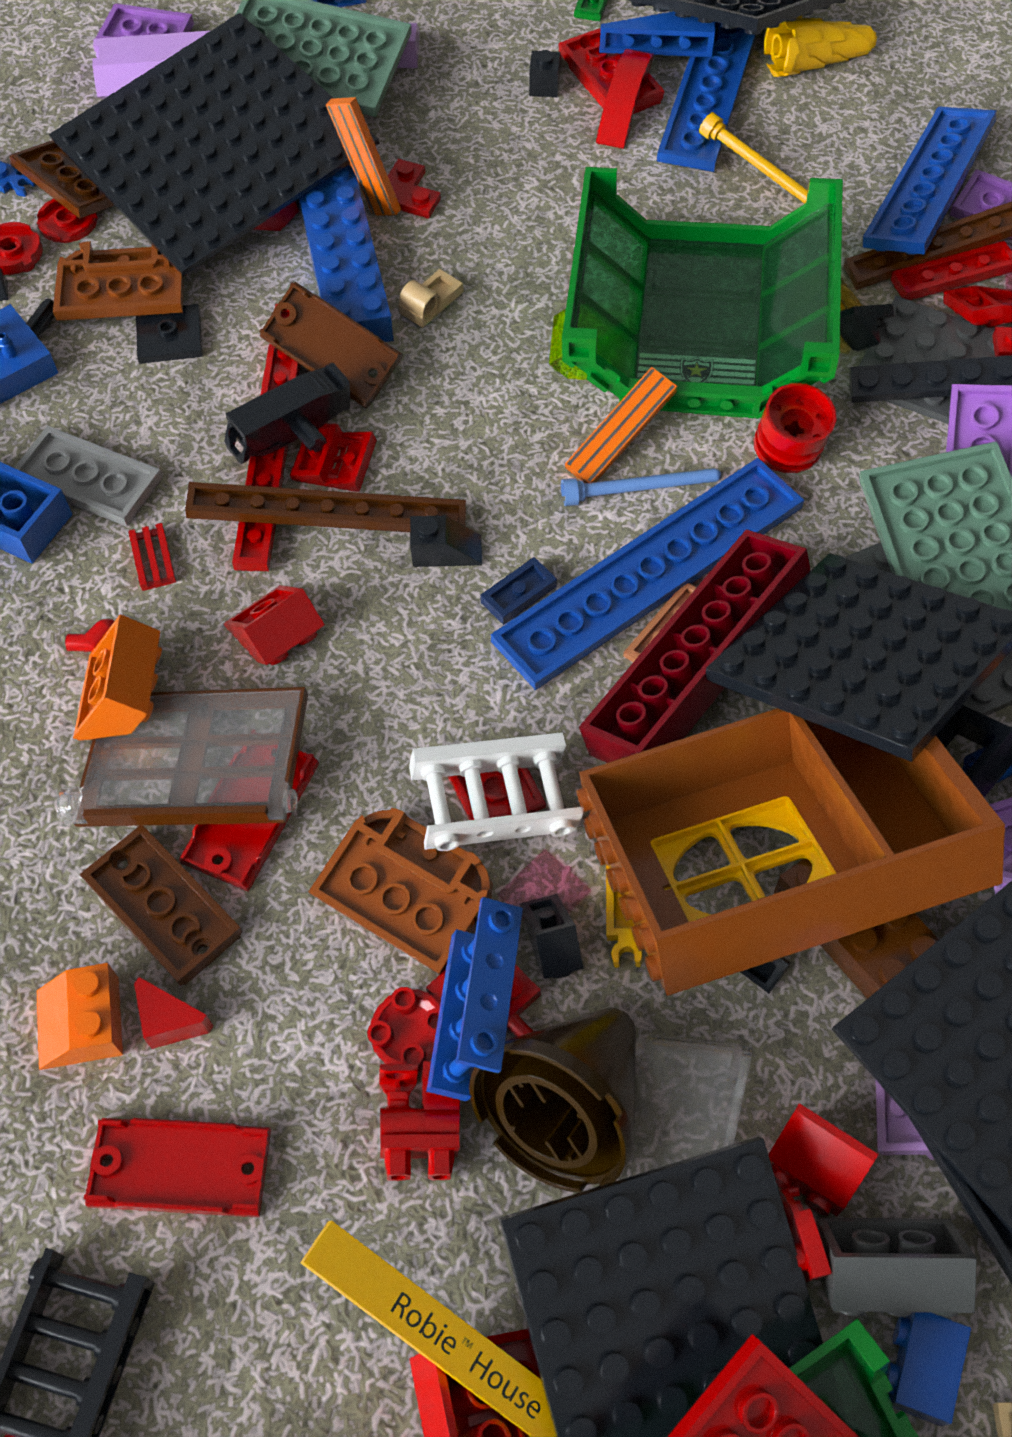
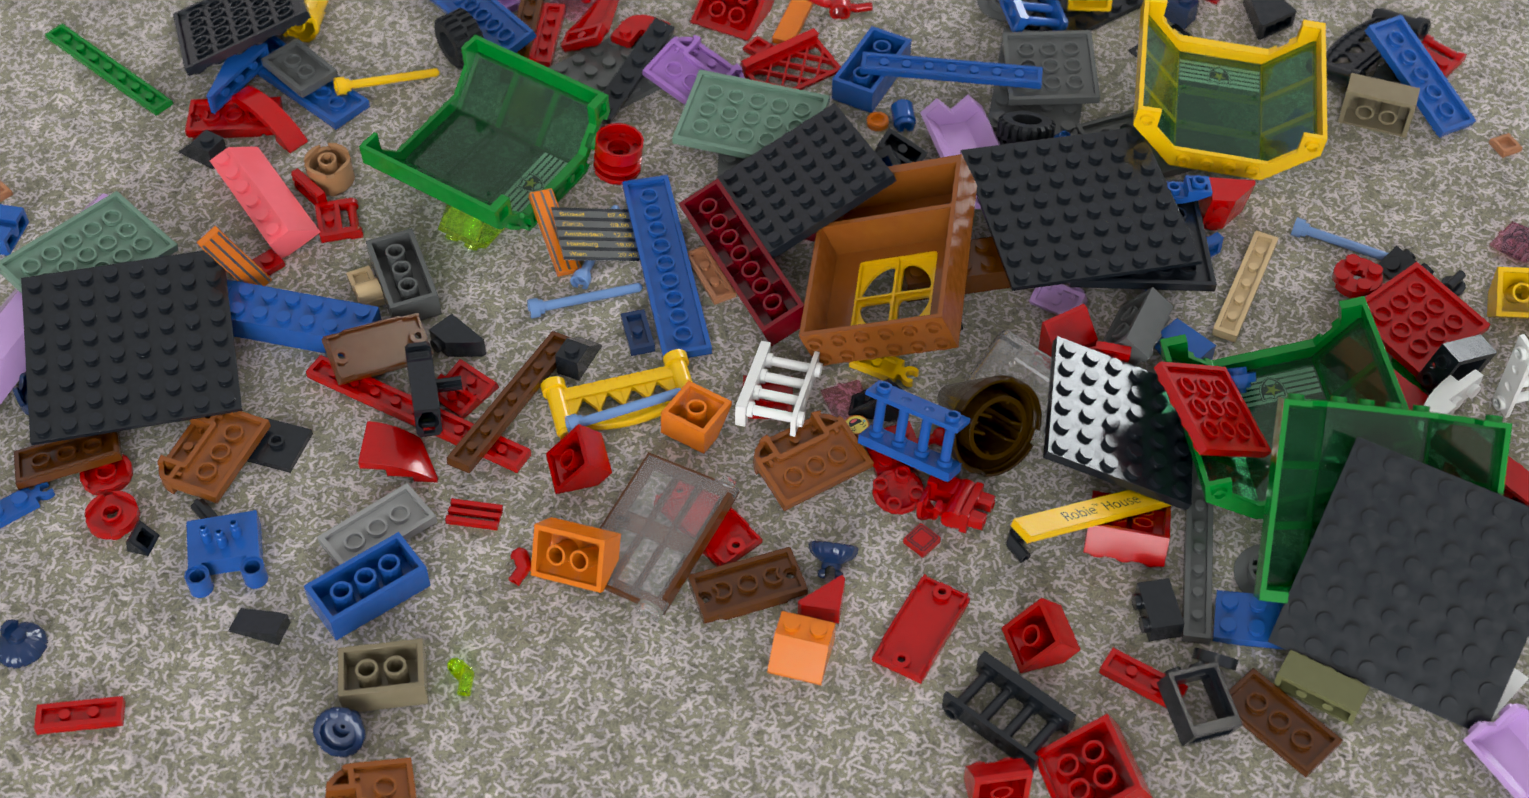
camera: 65 degrees left, 10 degrees down
(195, 436) = (396, 452): none -> red slope
(220, 1358) = (1040, 637): none -> red slope
(247, 987) = (832, 555): none -> dark blue hair
(319, 591) = (573, 420): none -> medium blue piece
(338, 1100) = (922, 540): none -> red tile
(397, 1240) = (1015, 545): none -> black arm
(399, 714) = (695, 416): none -> orange slope
(400, 411) = (456, 339): none -> black slope
(458, 319) = (403, 275): none -> dark grey brick
(461, 662) = (567, 401): none -> yellow piece
(498, 468) = (538, 307): none -> medium blue piece
(499, 149) = (265, 198): none -> coral slope
(515, 219) = (330, 220): none -> red plate
(543, 180) = (307, 187): none -> red tile
(569, 172) = (330, 168): none -> medium nougat brick
(645, 468) = (595, 234): none -> sticker
(712, 80) = (299, 67): none -> dark grey plate
(866, 184) = (453, 32): none -> black tyre

